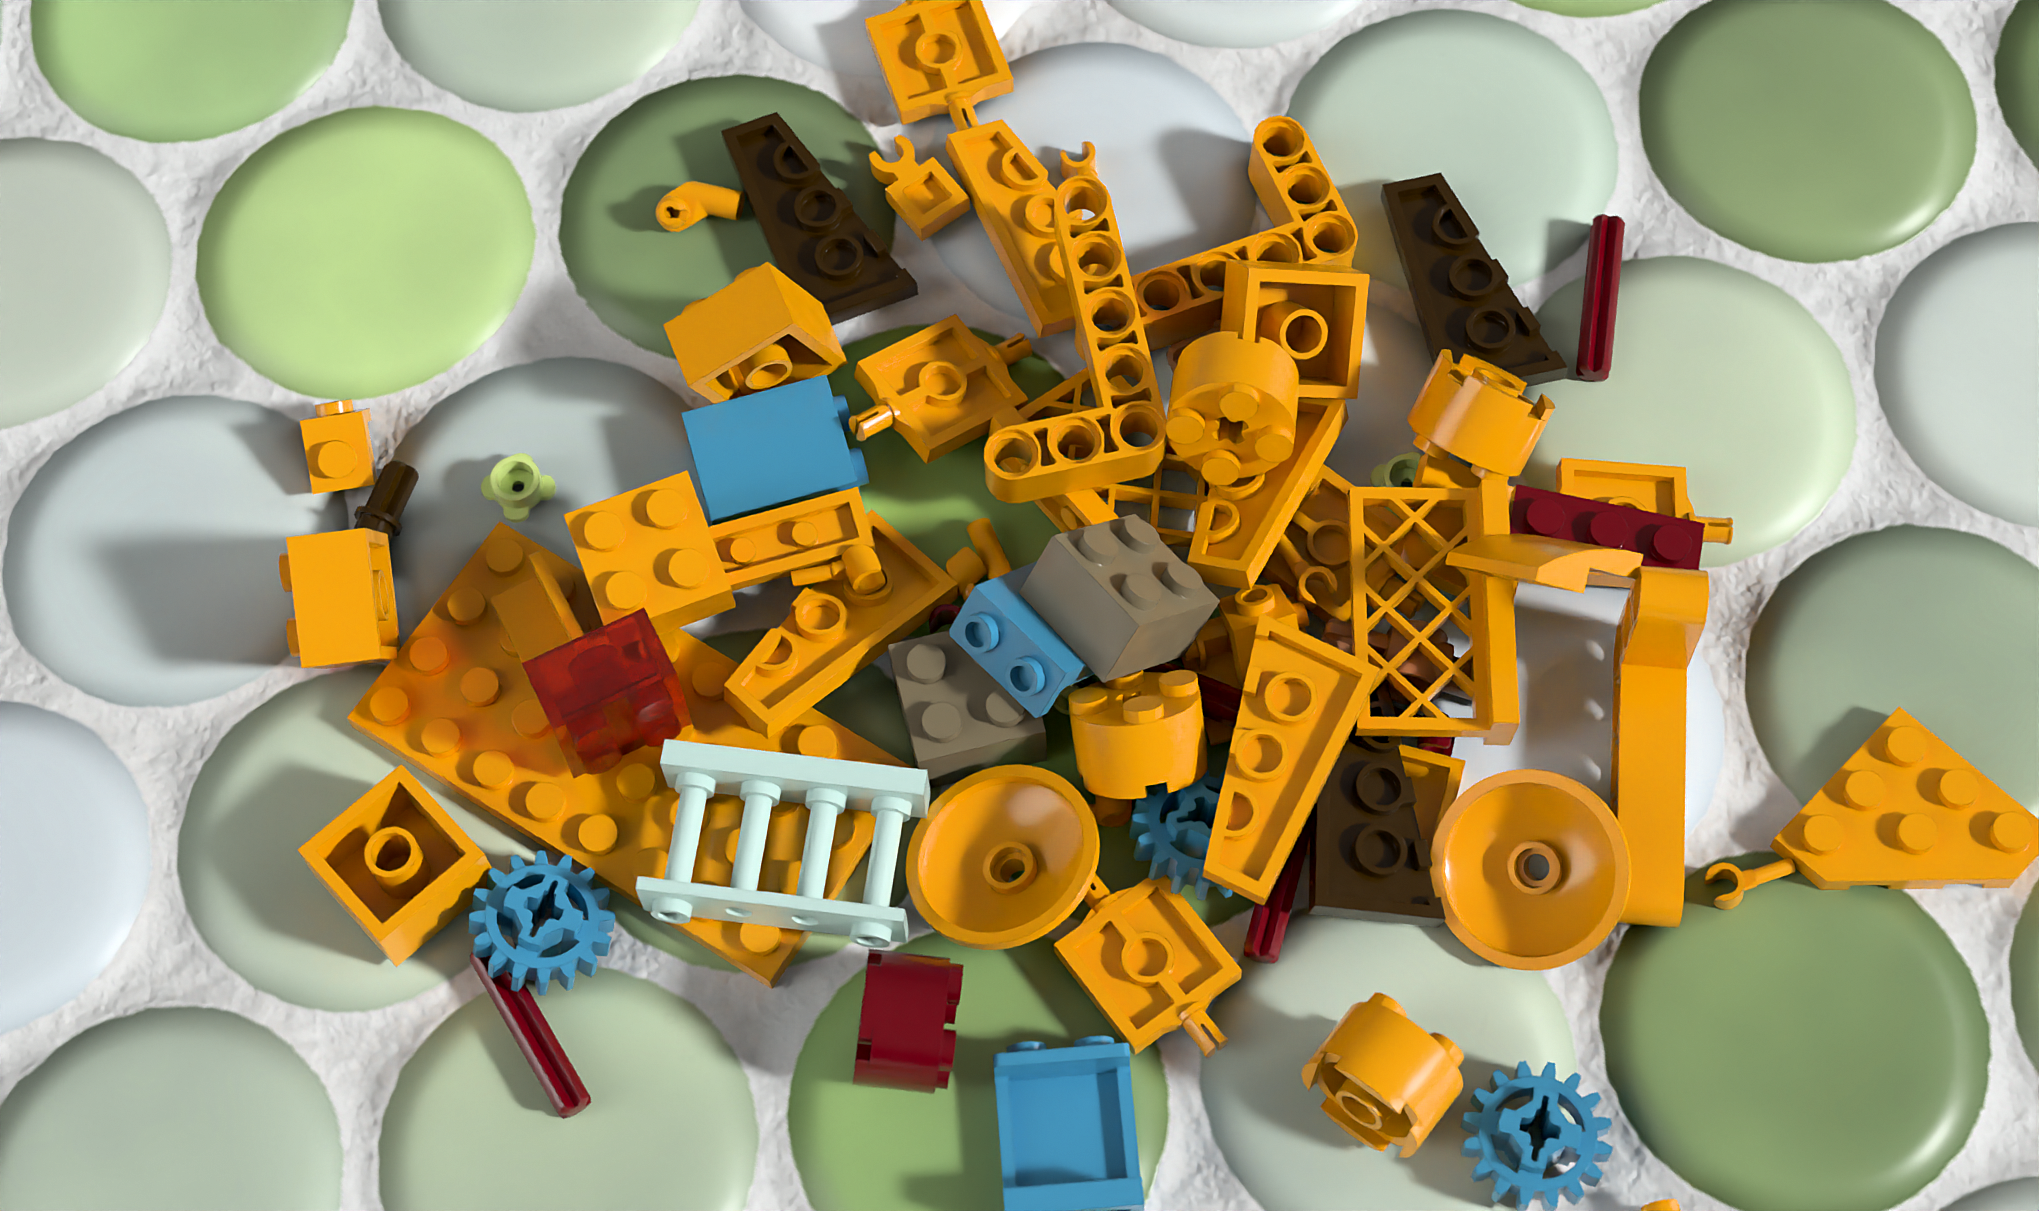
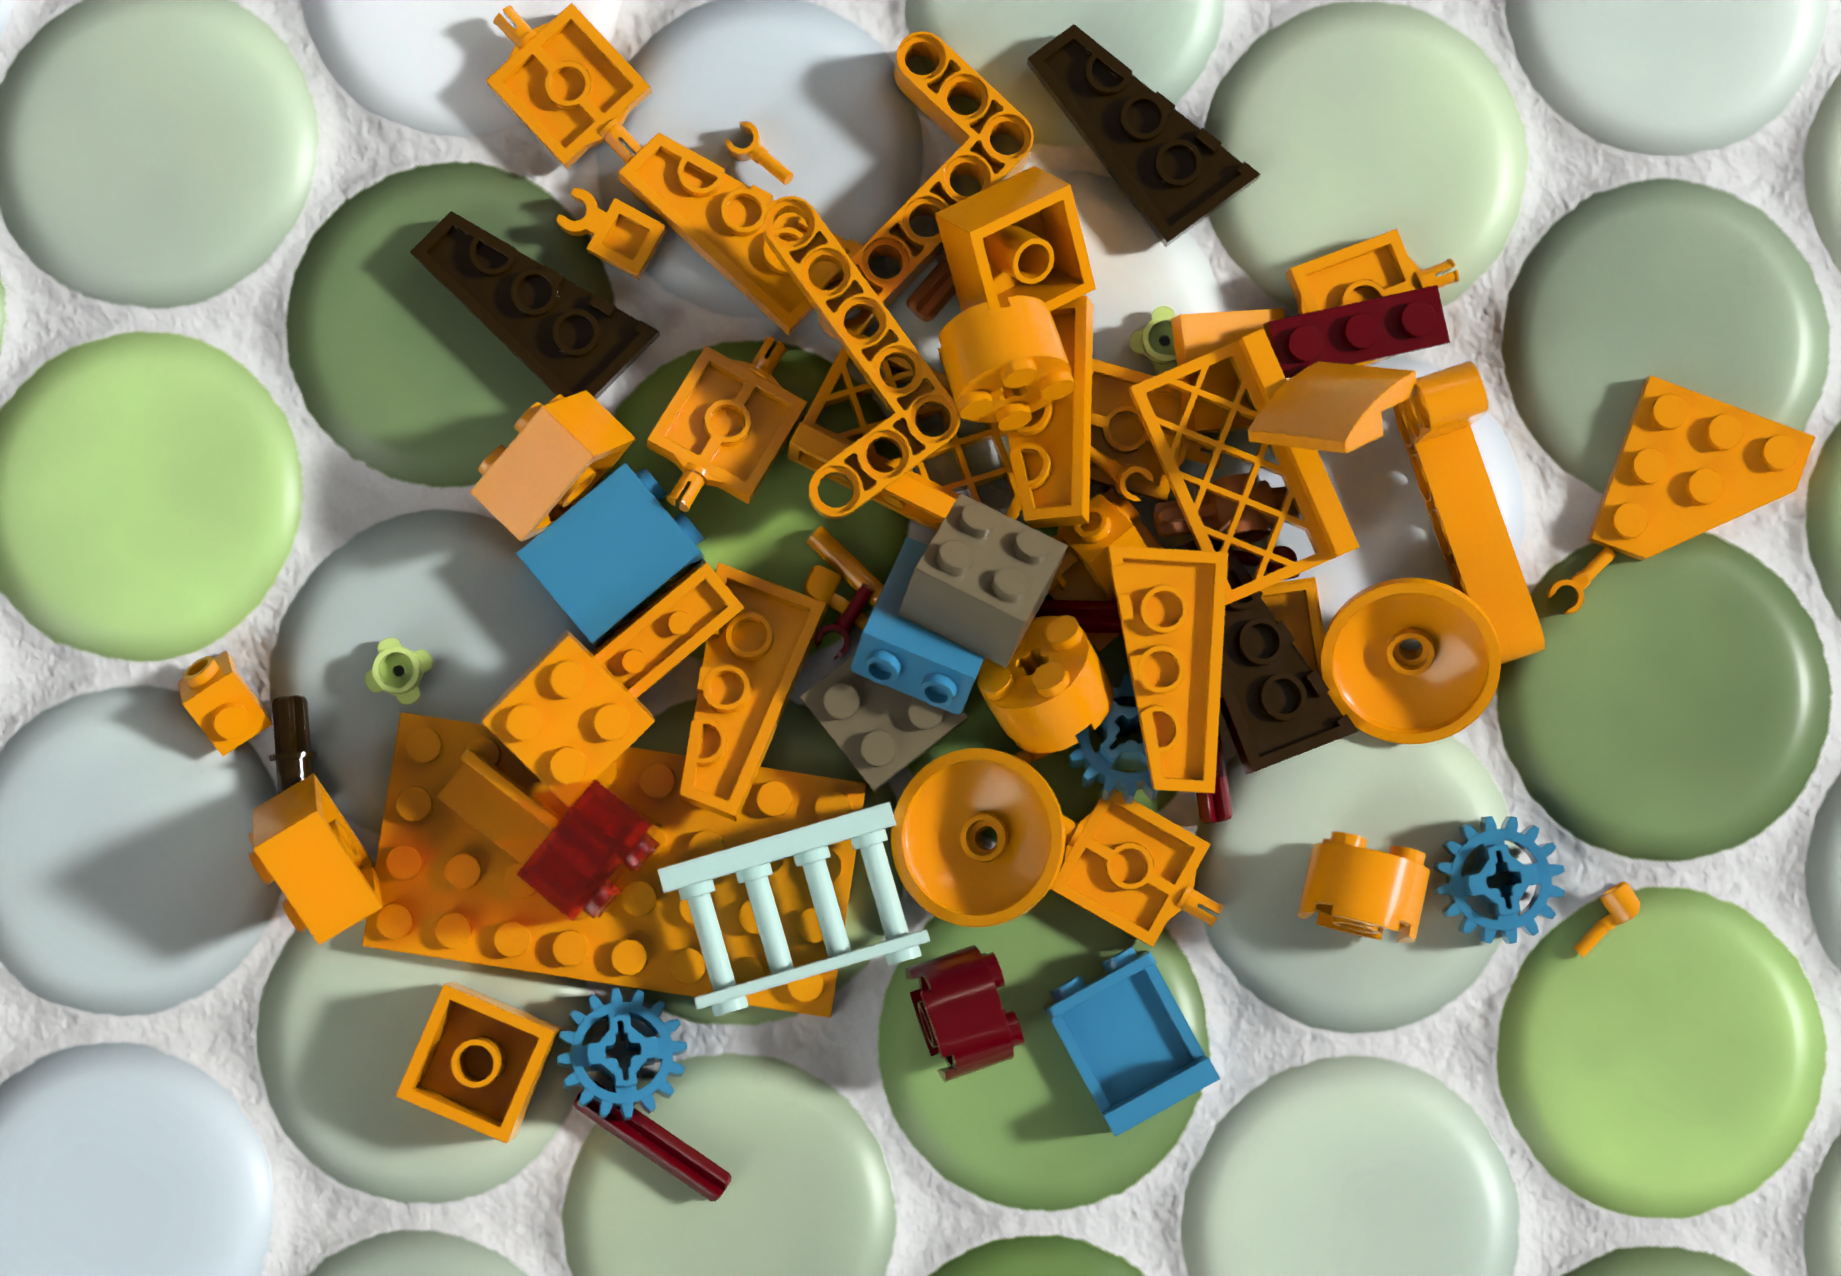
camera: 30 degrees left, 20 degrees up
(696, 201) = (417, 327): light orange arm -> none
(857, 564) = (738, 630): light orange hand -> none
(1478, 416) = (1209, 266): light orange brick -> none
(1600, 298) = (1259, 86): dark red axle -> none

